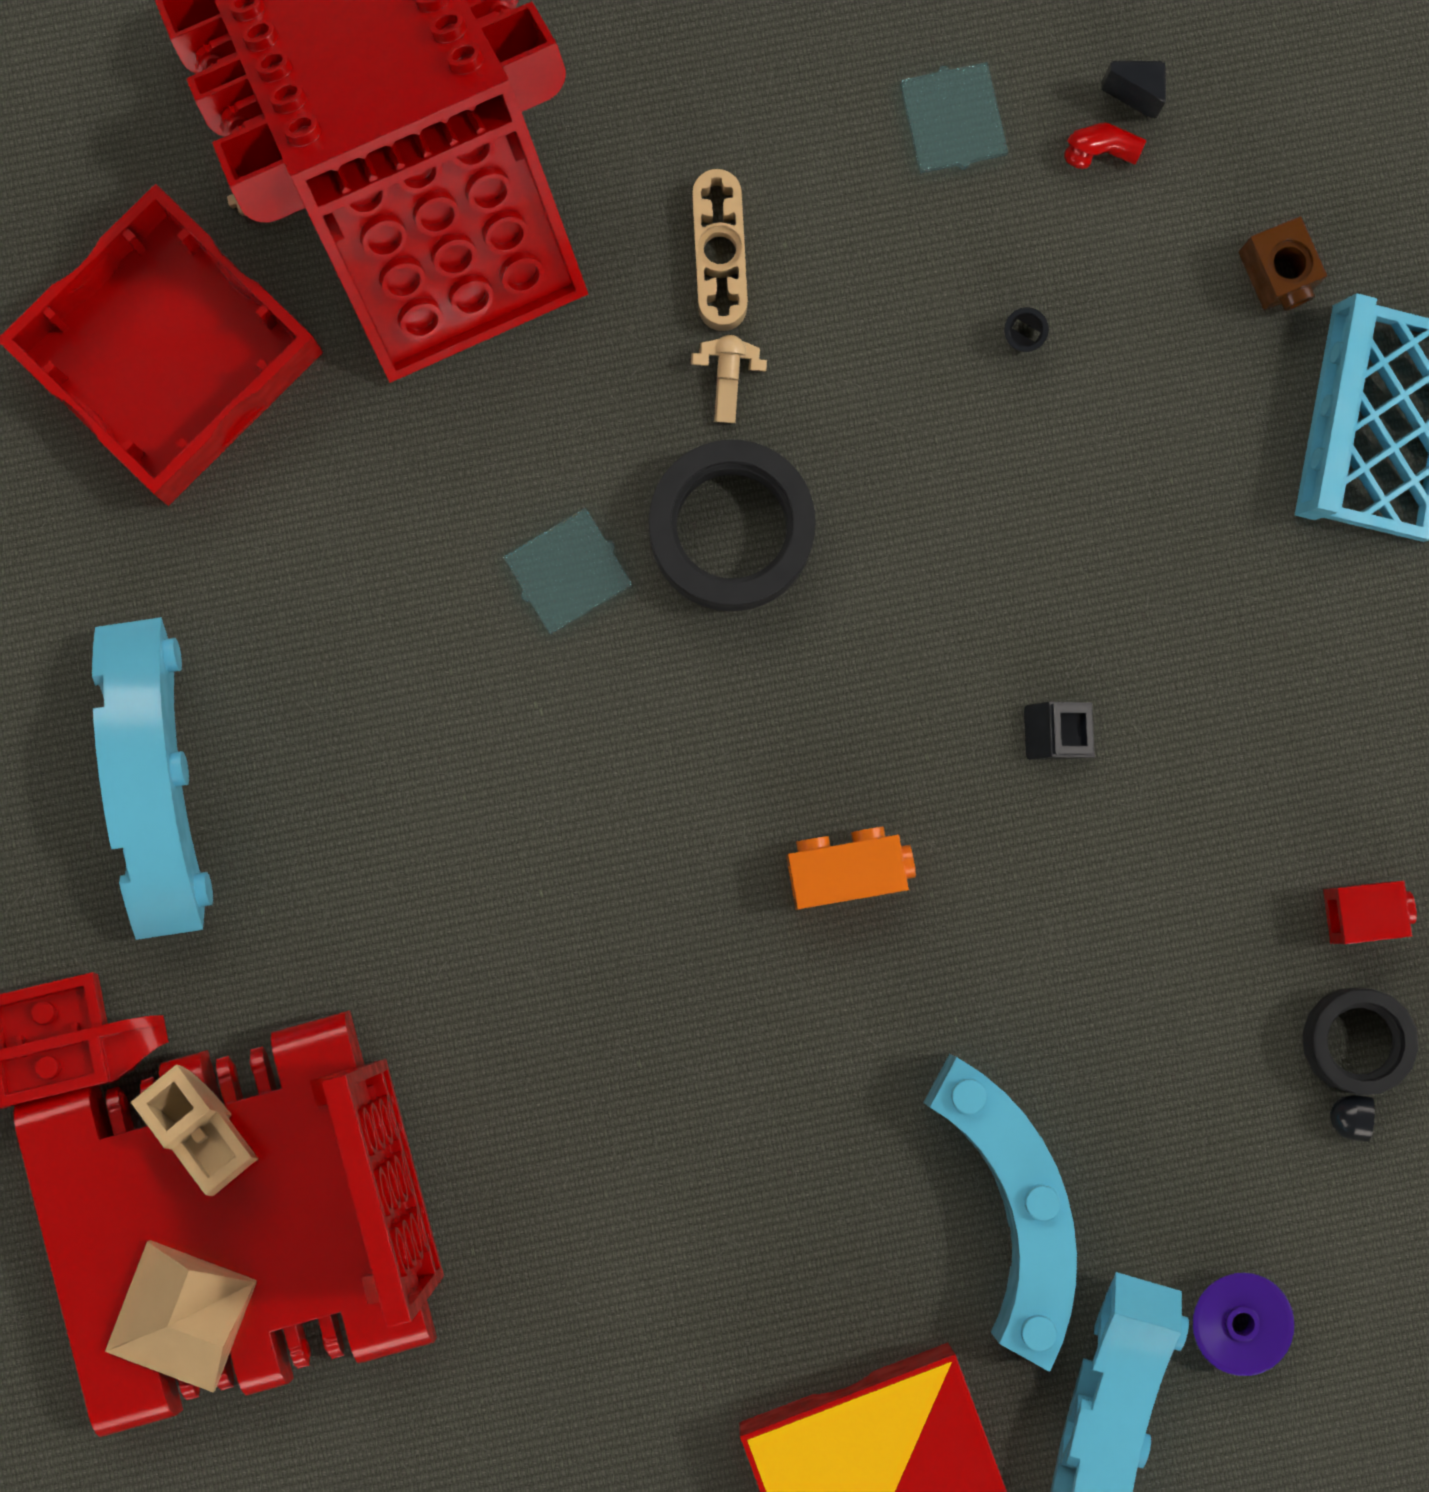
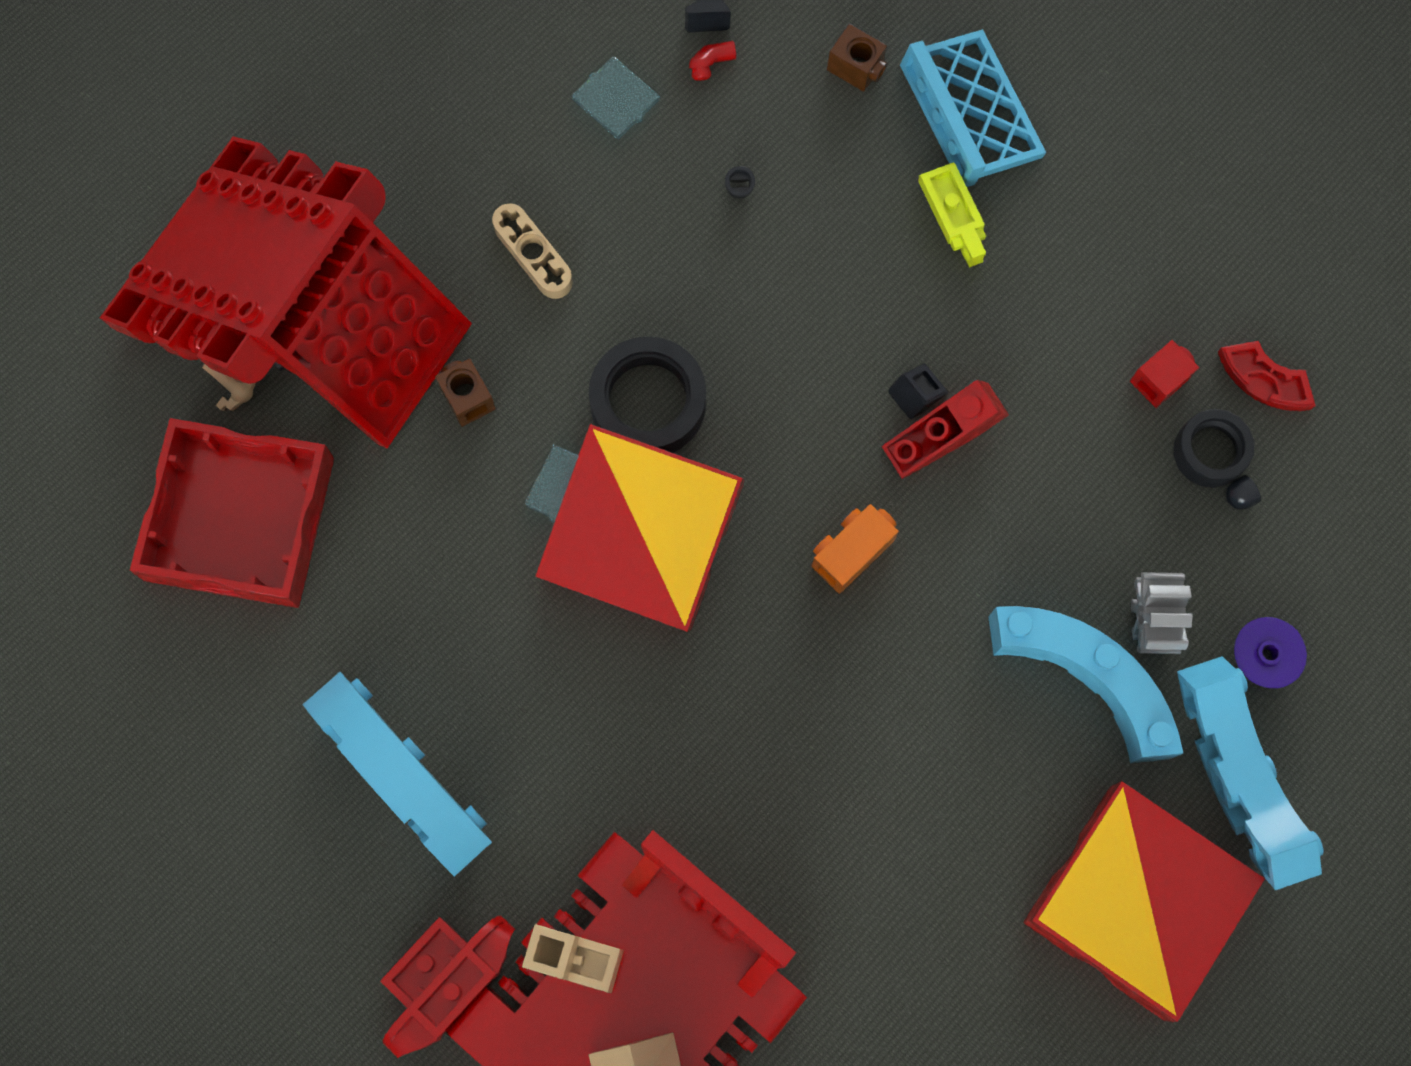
camera: 30 degrees left, 10 degrees down
(522, 398) = (470, 406): none -> reddish brown brick
(609, 682) = (640, 528): none -> tile
(729, 351) = (578, 302): tan piece -> none
(1057, 801) = (945, 428): none -> red slope
(1146, 1194) = (1161, 613): none -> light grey gear
(1263, 540) = (955, 211): none -> neon yellow hinge

